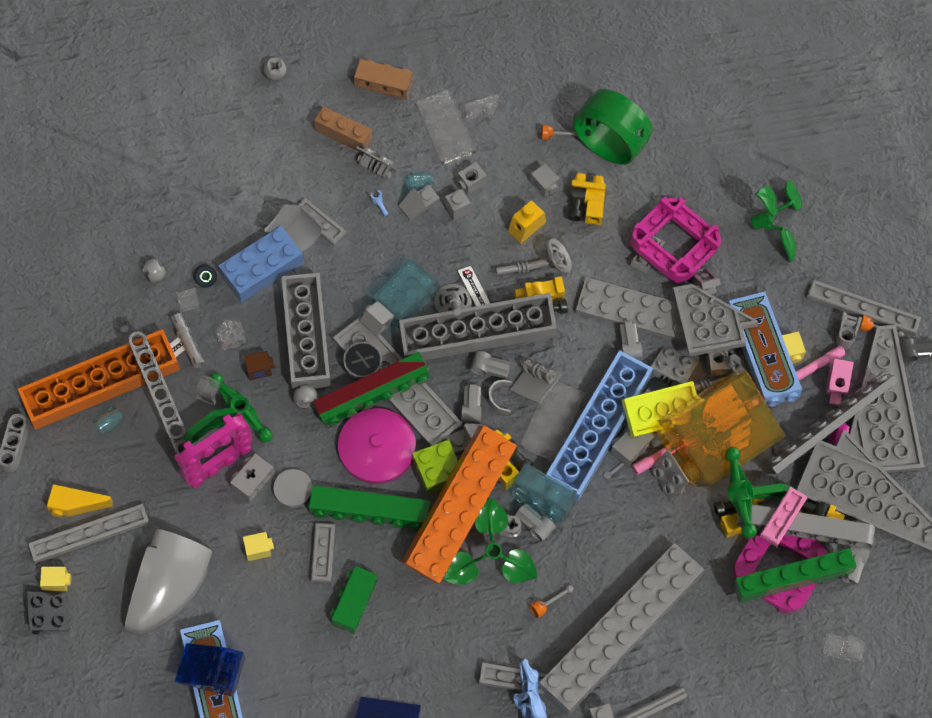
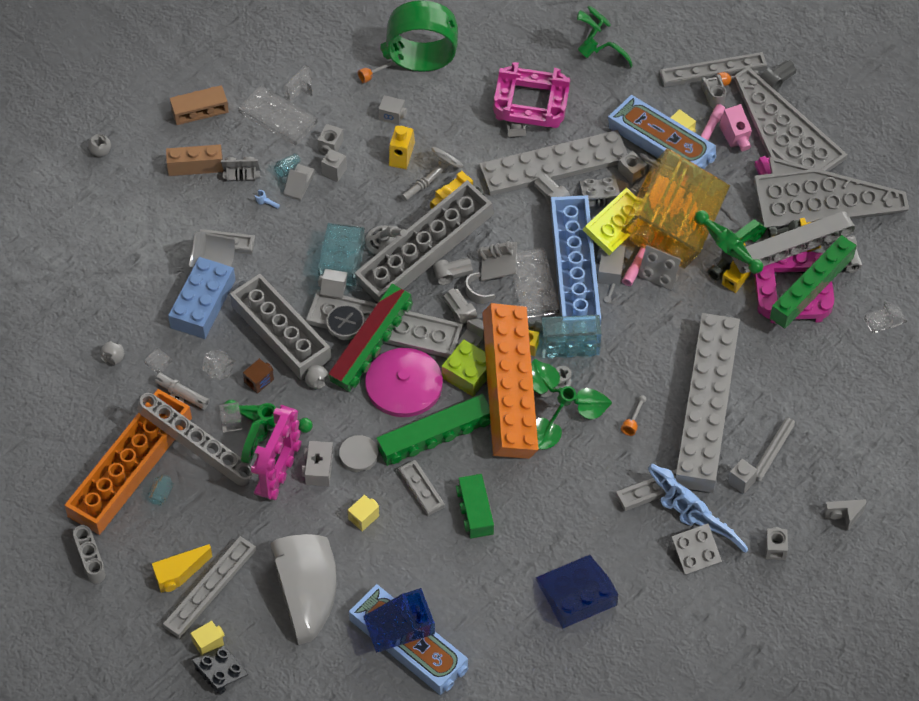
camera: 30 degrees left, 10 degrees down
(205, 269) = (154, 339): black wheel -> none
(473, 286) = (390, 219): white sticker -> none
(538, 525) = (583, 365): light grey piece -> none
(589, 194) = (437, 100): yellow hips -> none
(706, 280) = (577, 115): light grey slope -> none
(709, 322) = (605, 139): light grey wing -> none
(783, 516) = (773, 242): bright pink tile -> none
(833, 420) = (755, 160): light grey plate -> none

